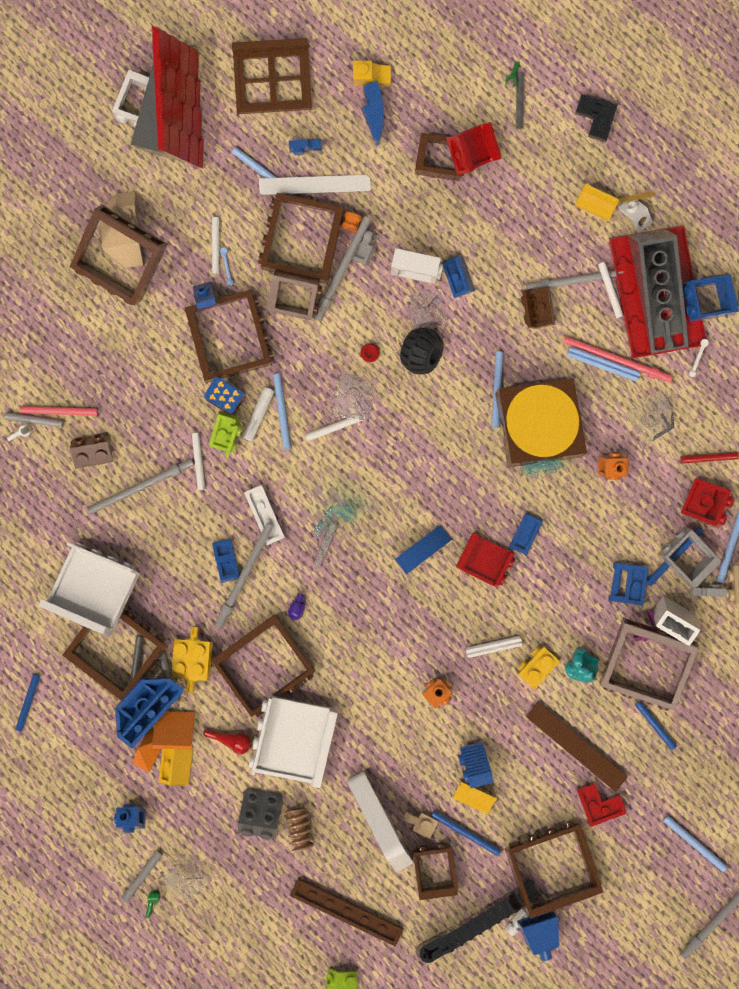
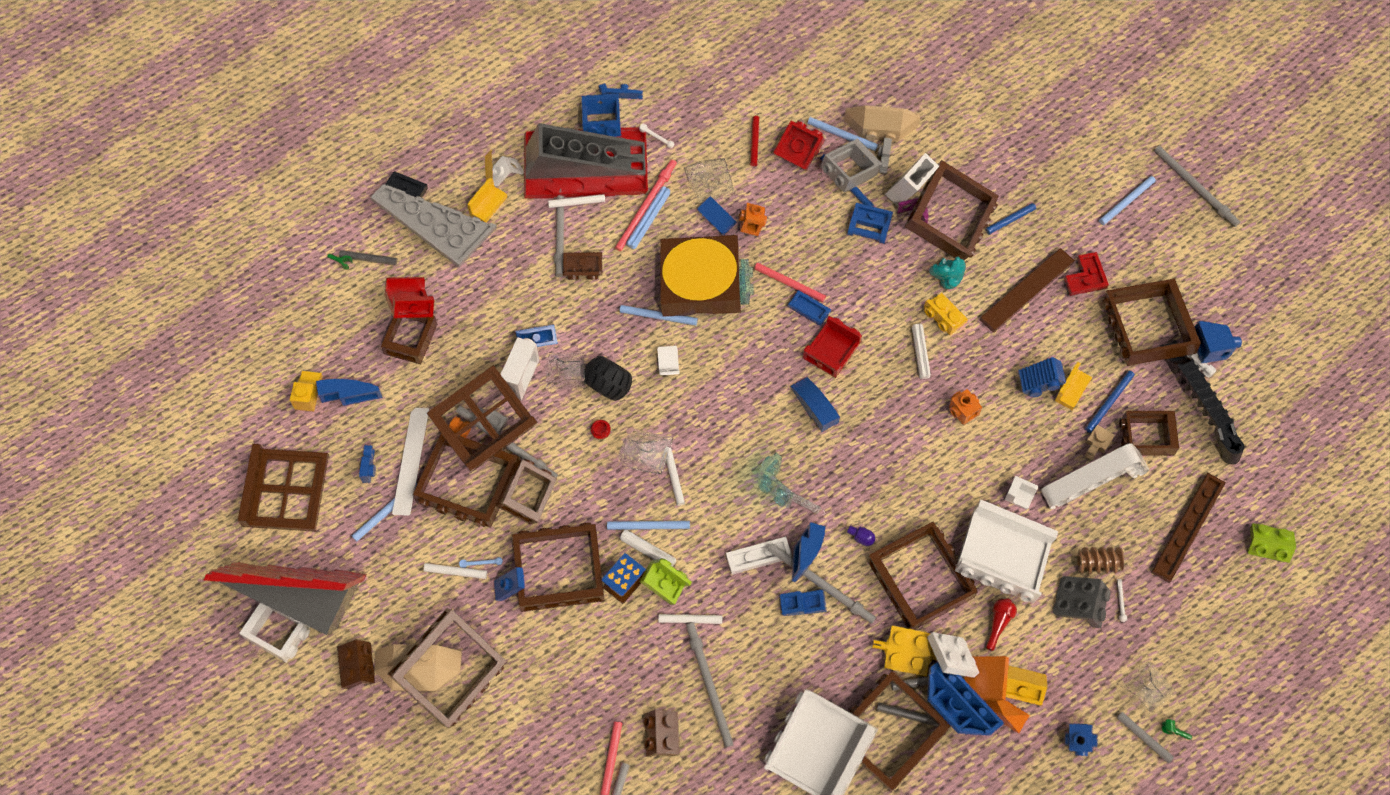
camera: 80 degrees left, 20 degrees down
(118, 176) = (355, 663): none -> reddish brown bracket
(189, 699) = (953, 654): none -> white plate
(250, 852) = (1122, 617): none -> white hinge
(270, 558) = (807, 549): none -> blue slope
(335, 261) = (500, 441): none -> reddish brown window
(357, 752) = (1021, 492): none -> white panel
(446, 405) = (668, 360): none -> white bracket
(551, 512) = (790, 282): none -> coral bar
(559, 166) = (439, 226): none -> light grey wing
(614, 430) = (716, 215): none -> blue tile

